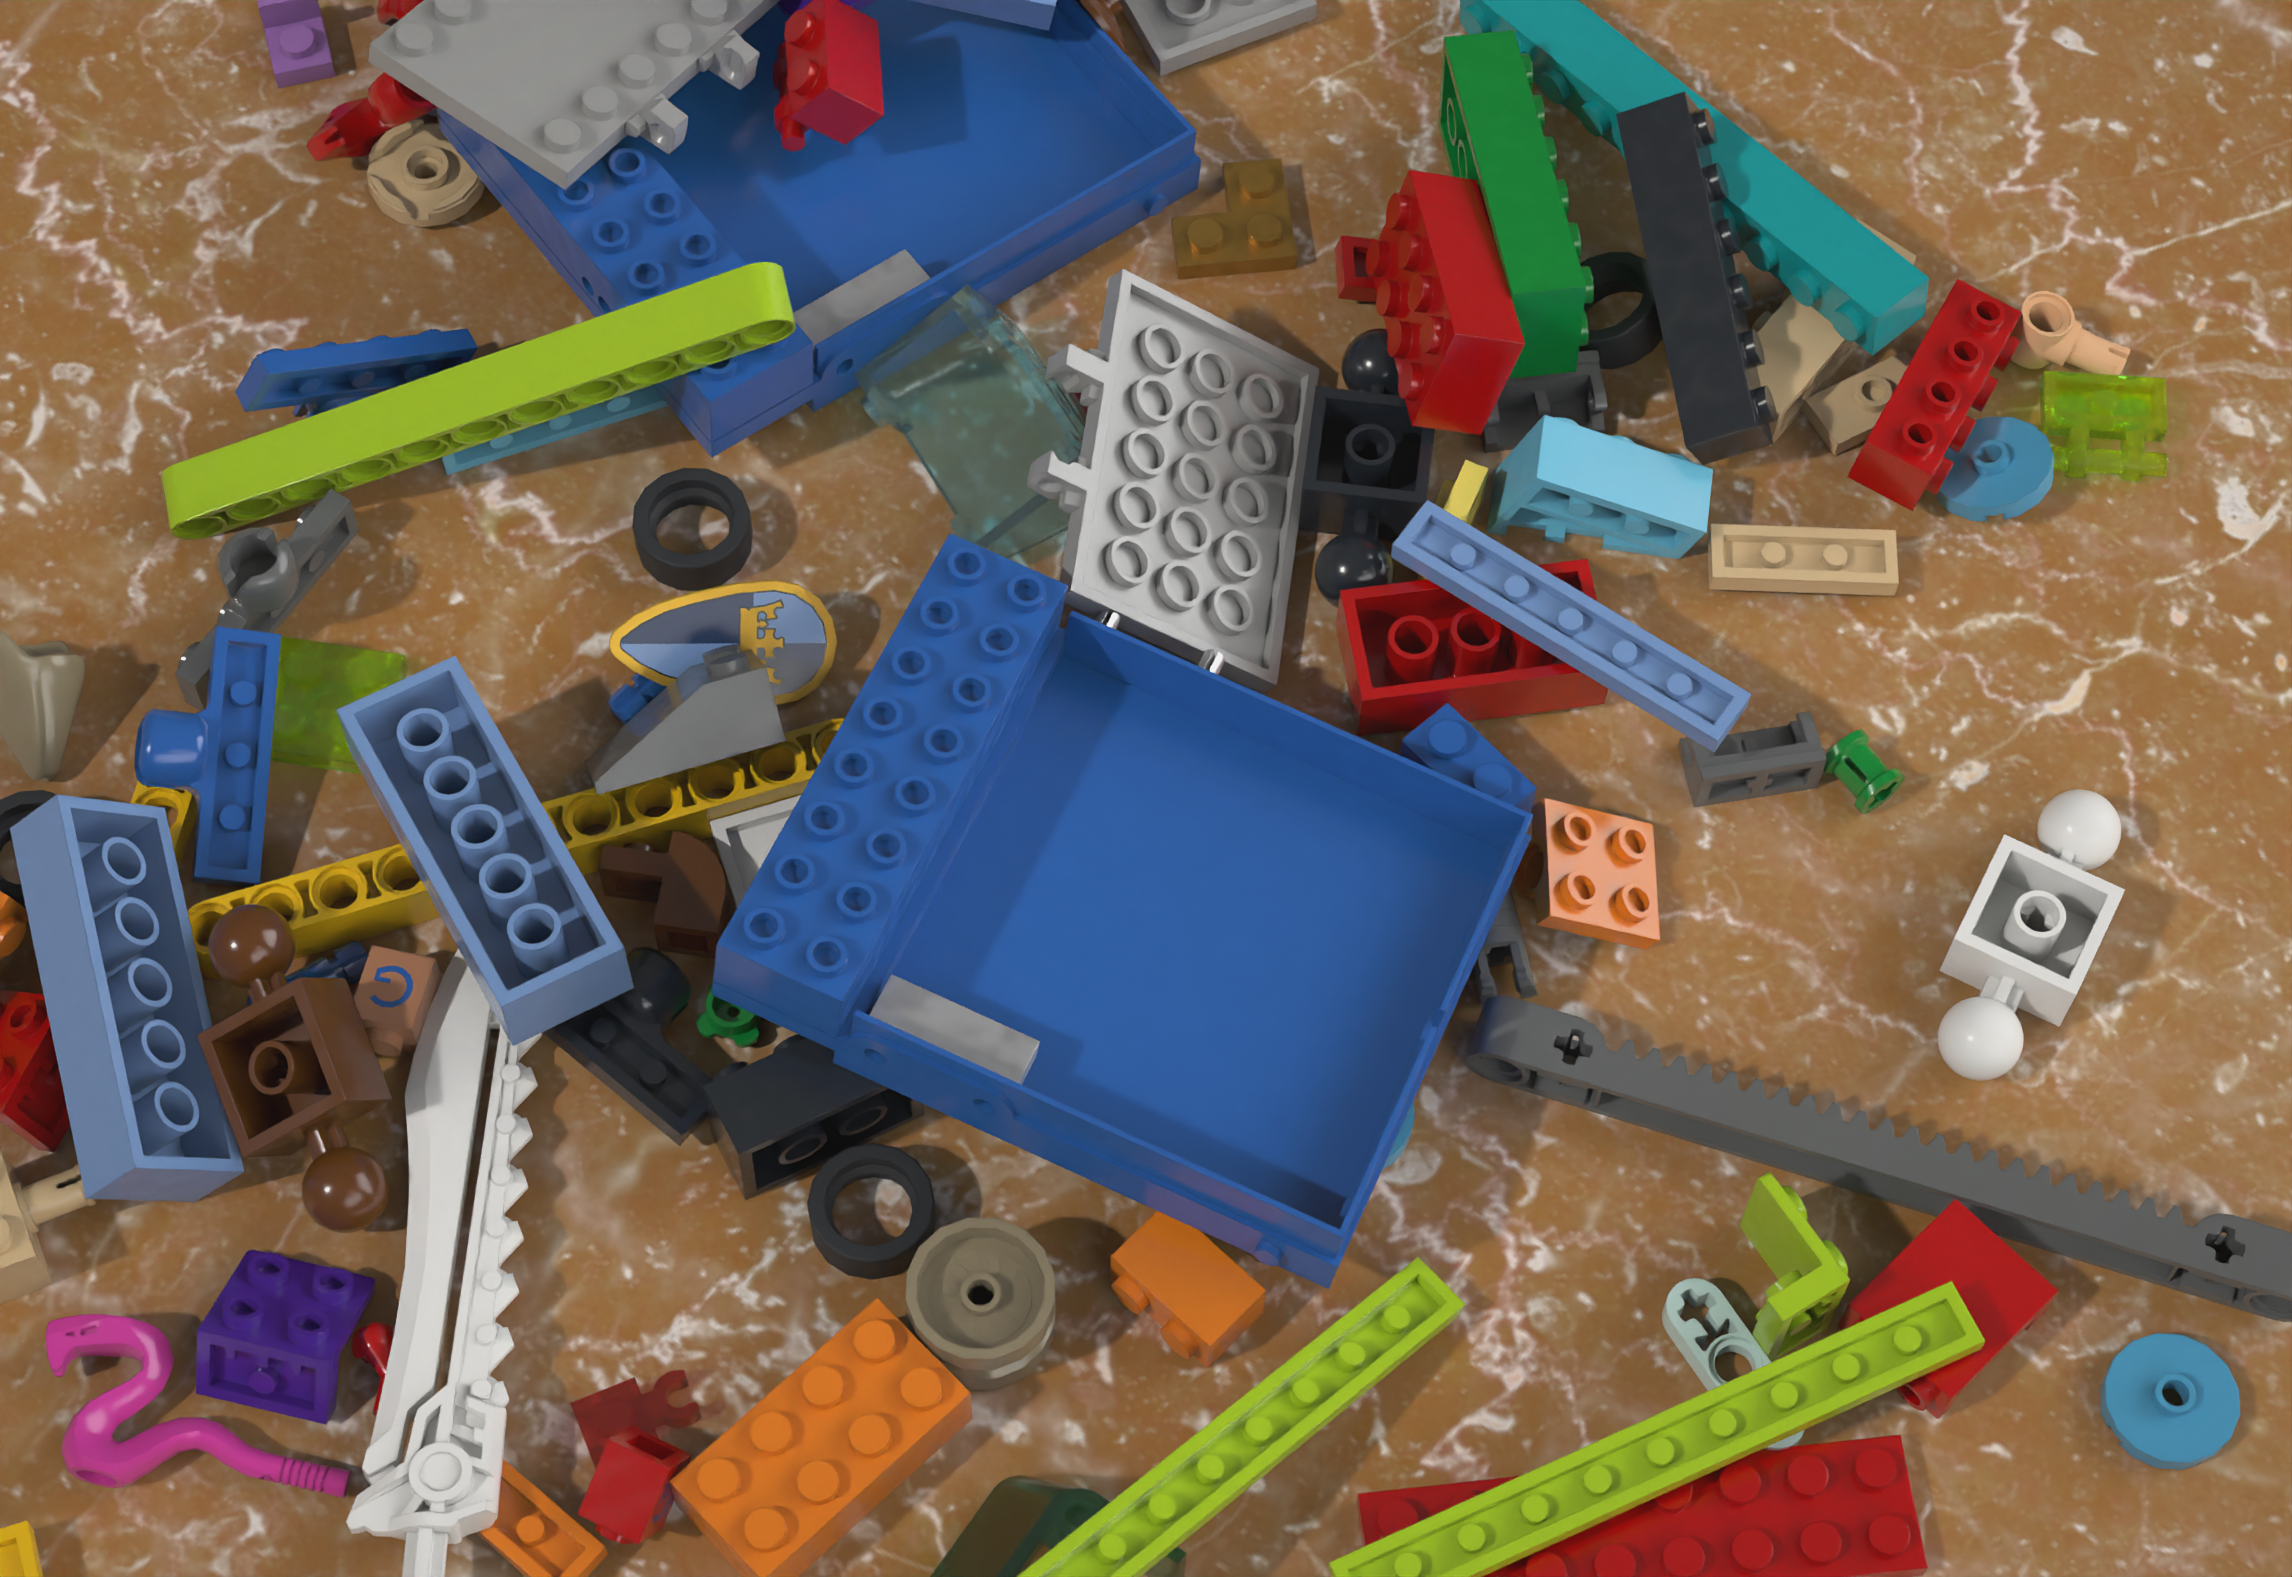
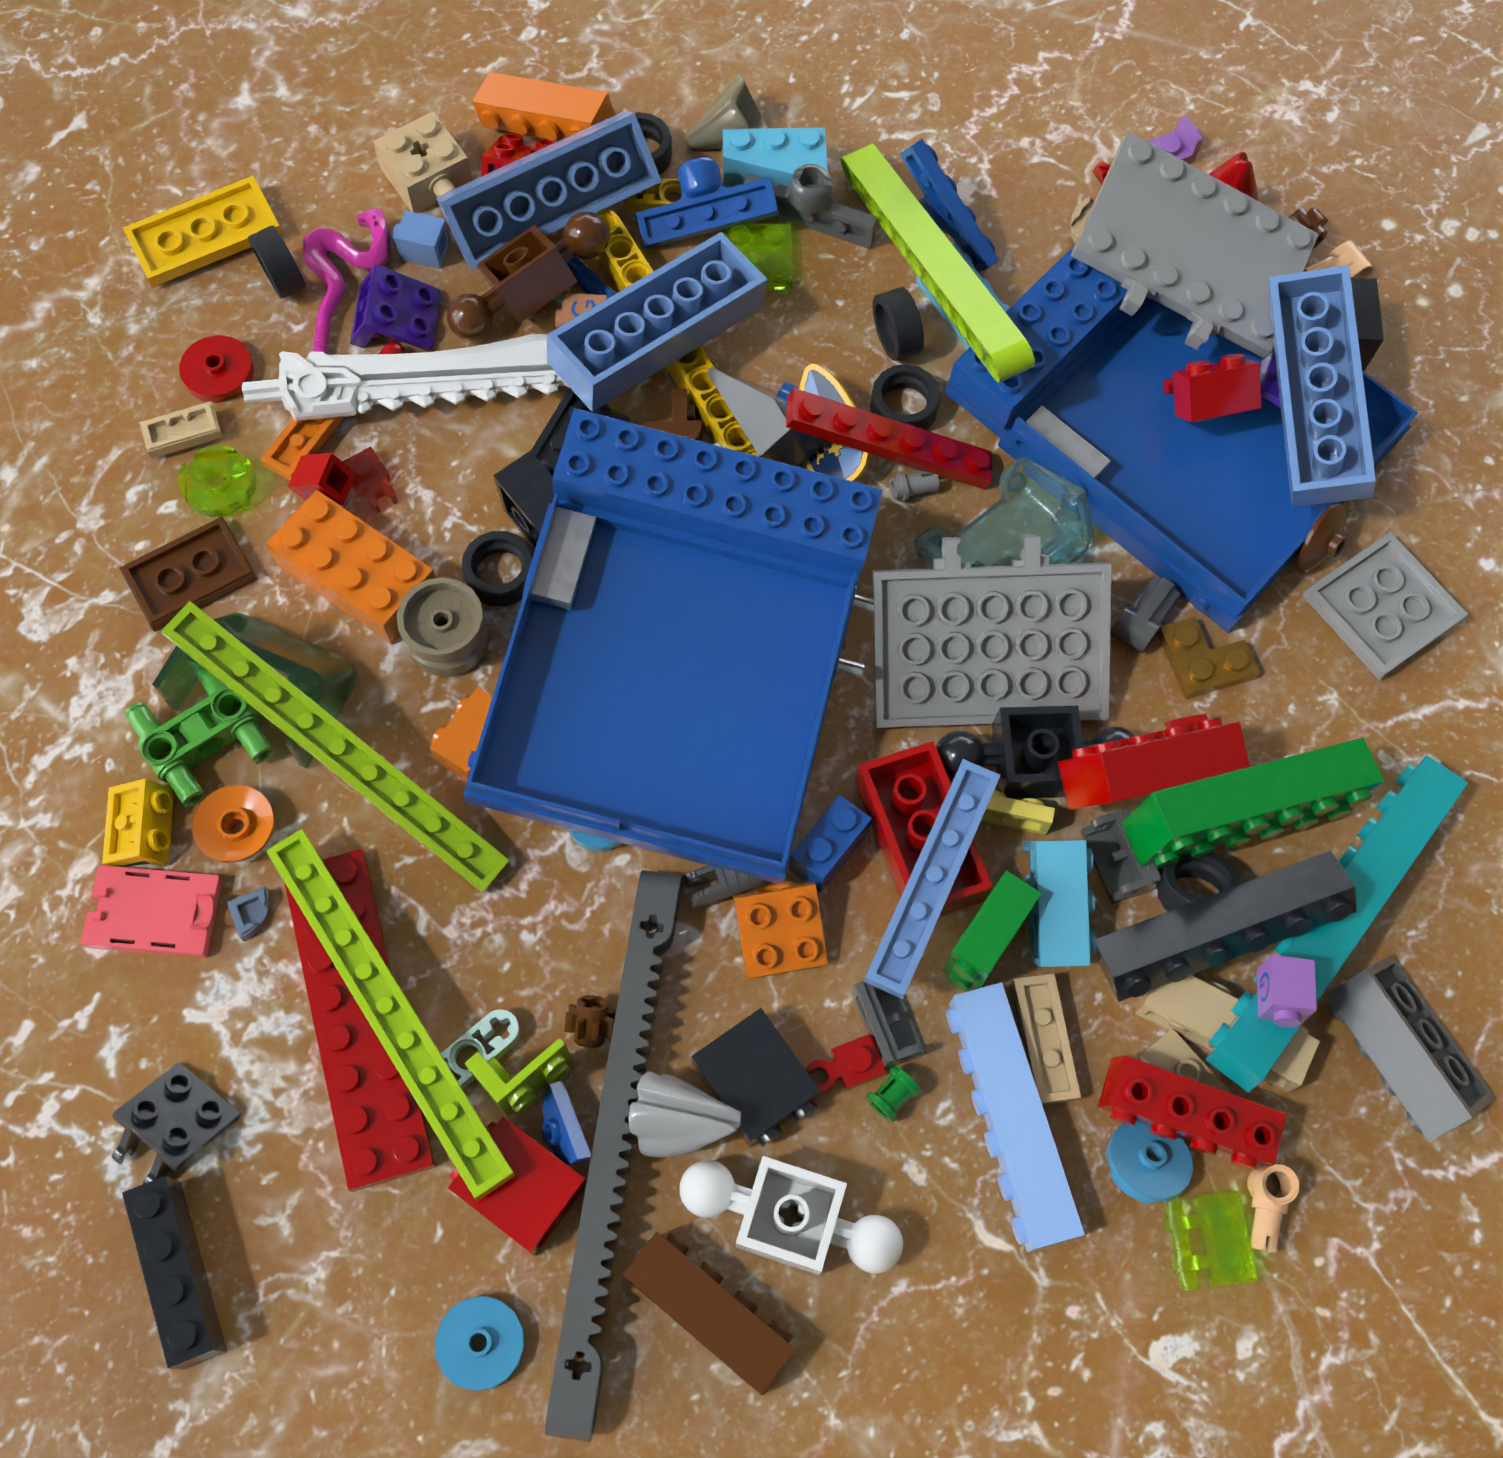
camera: 80 degrees right, 5 degrees up
(127, 1521) = (277, 261): none -> black tyre
(133, 1261) = (421, 239): none -> medium blue brick
(150, 609) = (771, 153): none -> medium azure wedge
(574, 480) = (898, 323): none -> black tyre
(790, 550) = (888, 438): none -> red plate
(853, 560) = (913, 484): none -> light grey pin
(1138, 253) = (1142, 620): none -> dark grey piece
(1653, 575) = (990, 932): none -> green brick
(1704, 1167) = (590, 1021): none -> reddish brown gear
(1807, 822) = (853, 1063): none -> red plate
(1814, 215) = (1286, 990): none -> medium lavender brick
(1818, 949) = (758, 1076): none -> black brick
(1875, 1228) = (561, 1126): none -> blue plate
(1877, 1045) = (677, 1117): none -> light grey hat
(1879, 121) = (1410, 1048): none -> slope
(1911, 621) = (1015, 1119): none -> light blue brick
(2152, 1069) = (709, 1312): none -> reddish brown brick

